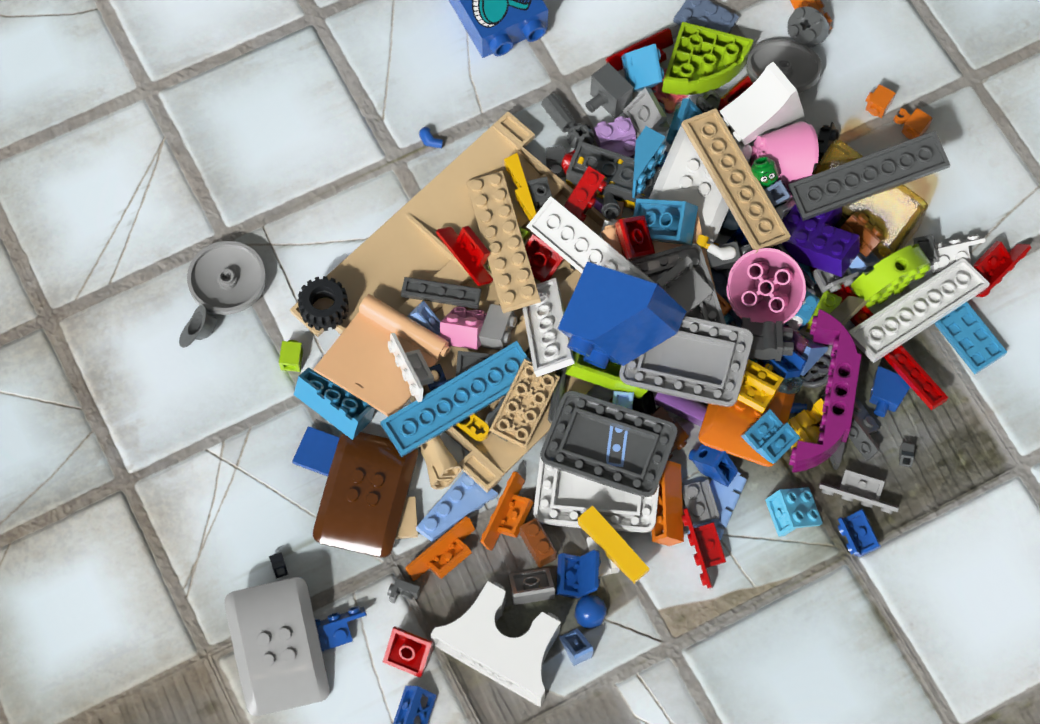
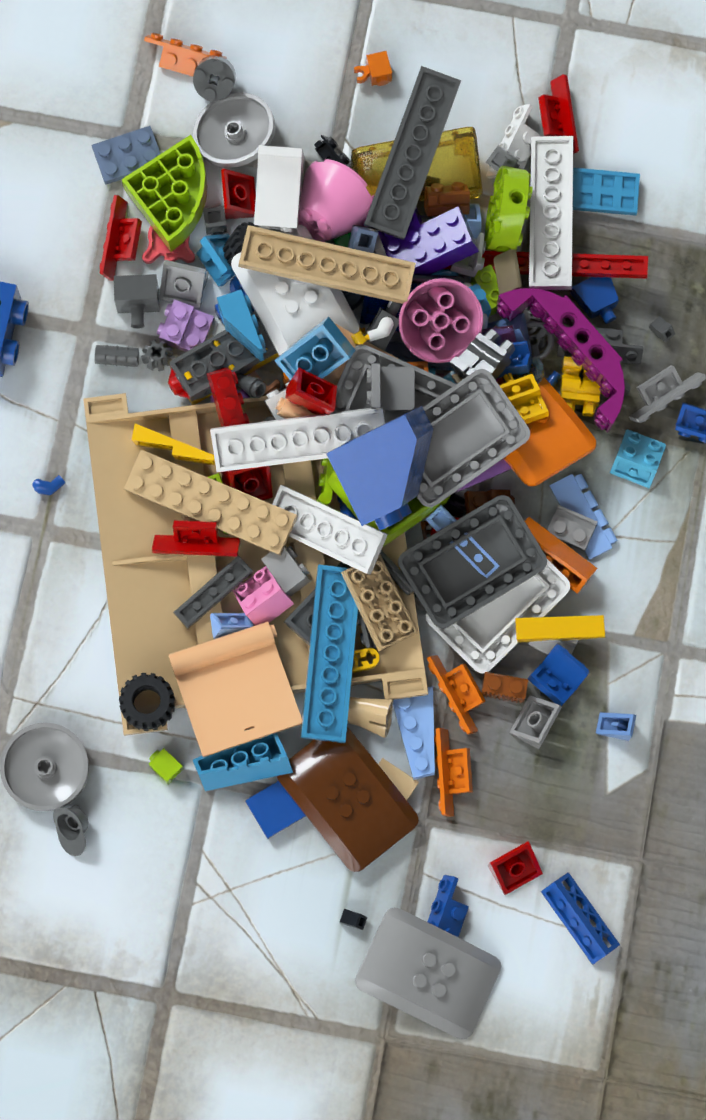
camera: 55 degrees left, 10 degrees up
(406, 589) = (460, 828): dark grey bracket -> none
(413, 367) = (271, 670): white bracket -> none
(442, 380) = (300, 657): dark blue bracket -> none
(507, 660) = (559, 802): white piece -> none
(539, 191) = (195, 440): dark grey brick -> none
(554, 156) = (159, 390): dark grey bracket -> none
(590, 611) = (595, 691): blue hair -> none
(643, 67) = (144, 251): dark azure slope -> none
(707, 546) = (616, 552): red bracket -> none
(714, 464) = (551, 490): blue torso -> none
(765, 171) = (339, 233): green head -> none
(770, 436) = (574, 426): dark azure slope -> none
(879, 101) = (331, 79): orange brick -> none

